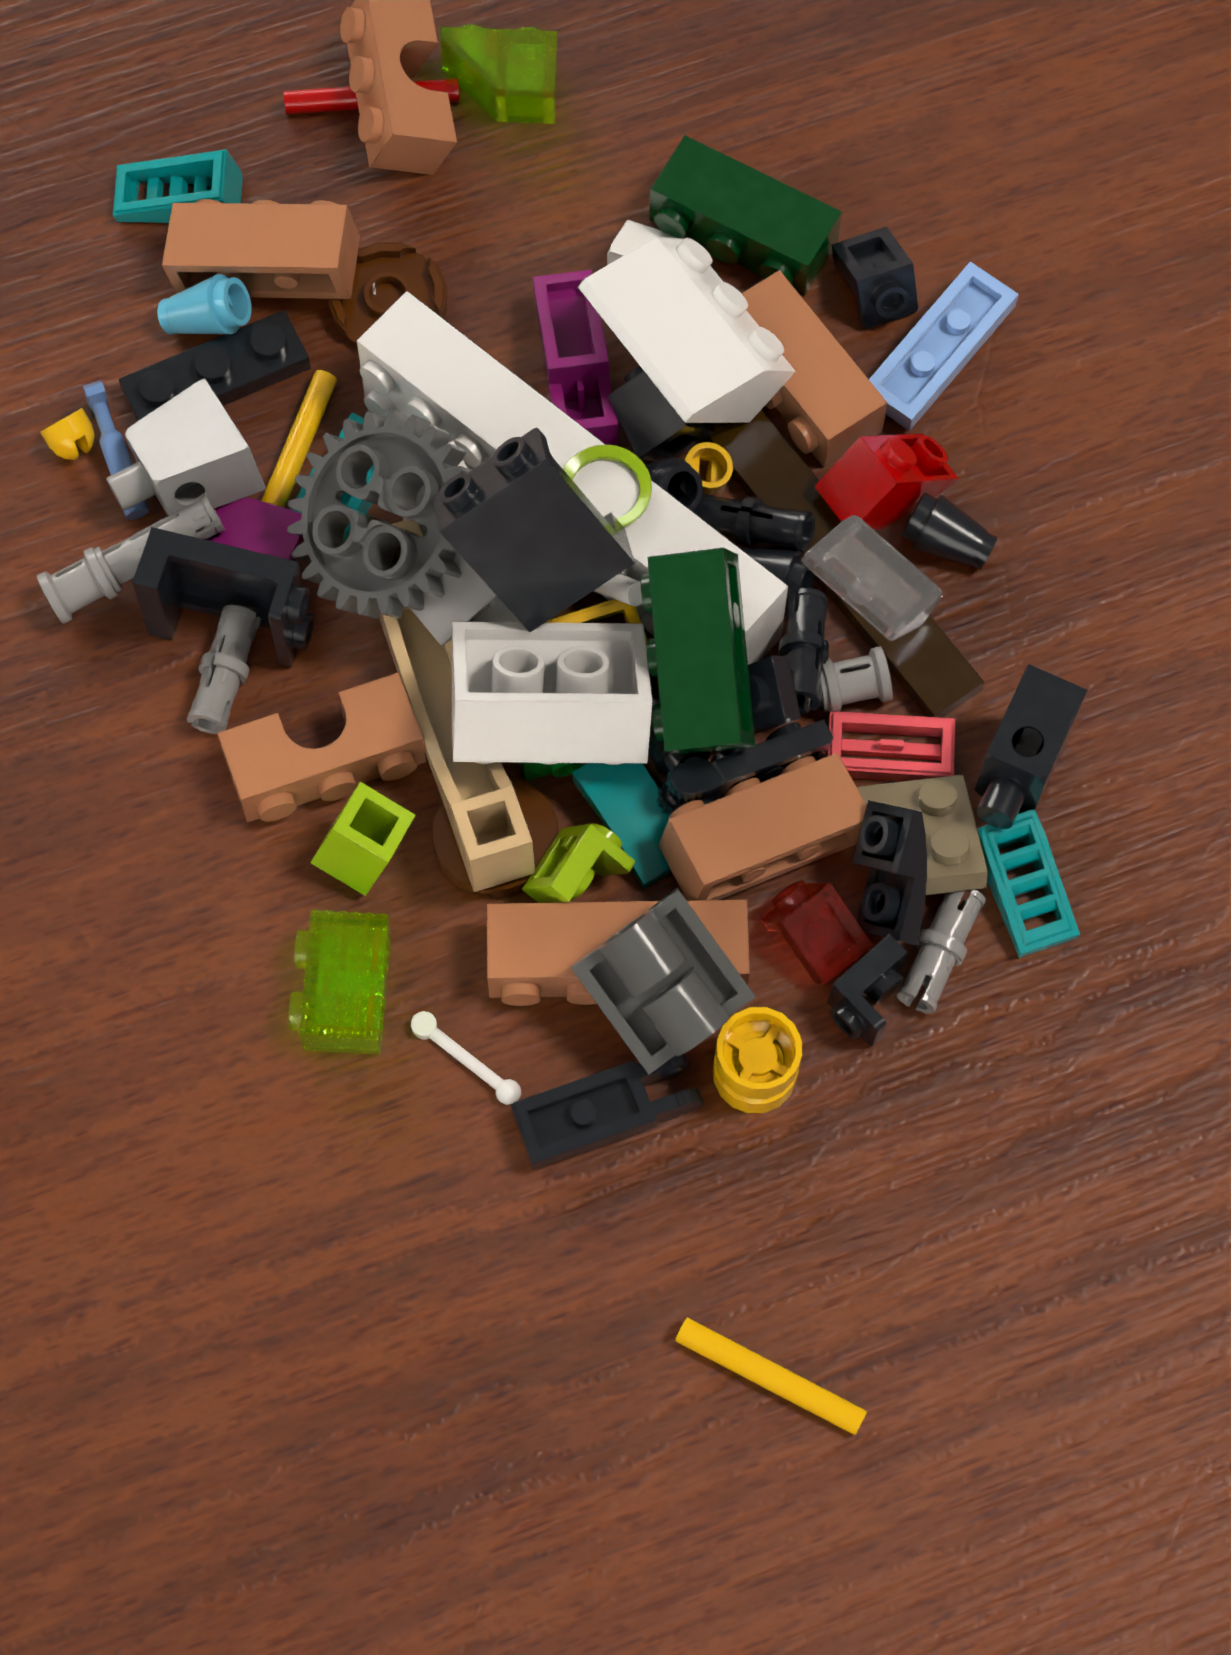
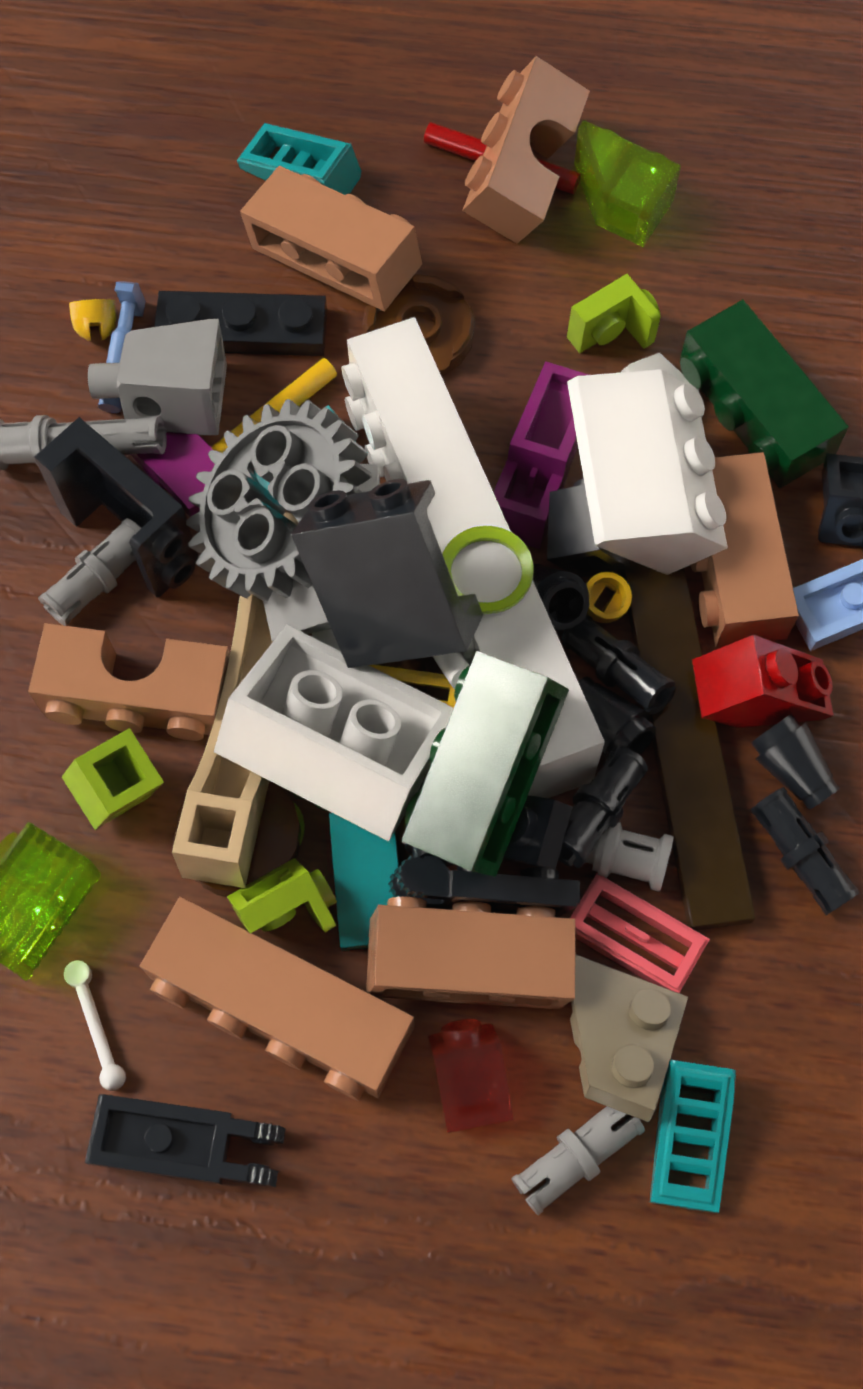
camera: 30 degrees right, 0 degrees up
(207, 308) = (261, 264): medium azure cone -> none
(565, 201) = (612, 309): none -> lime bracket
(663, 982) = (287, 1060): dark grey plate -> none
(757, 1060) = (339, 1176): yellow wheel -> none
(870, 978) = (496, 1154): black bracket -> none
(873, 578) = (699, 771): clear slope -> none
(895, 890) = (558, 1081): black slope -> none
(996, 605) = (804, 851): none -> black pin
(1027, 746) = (756, 1007): black torso -> none

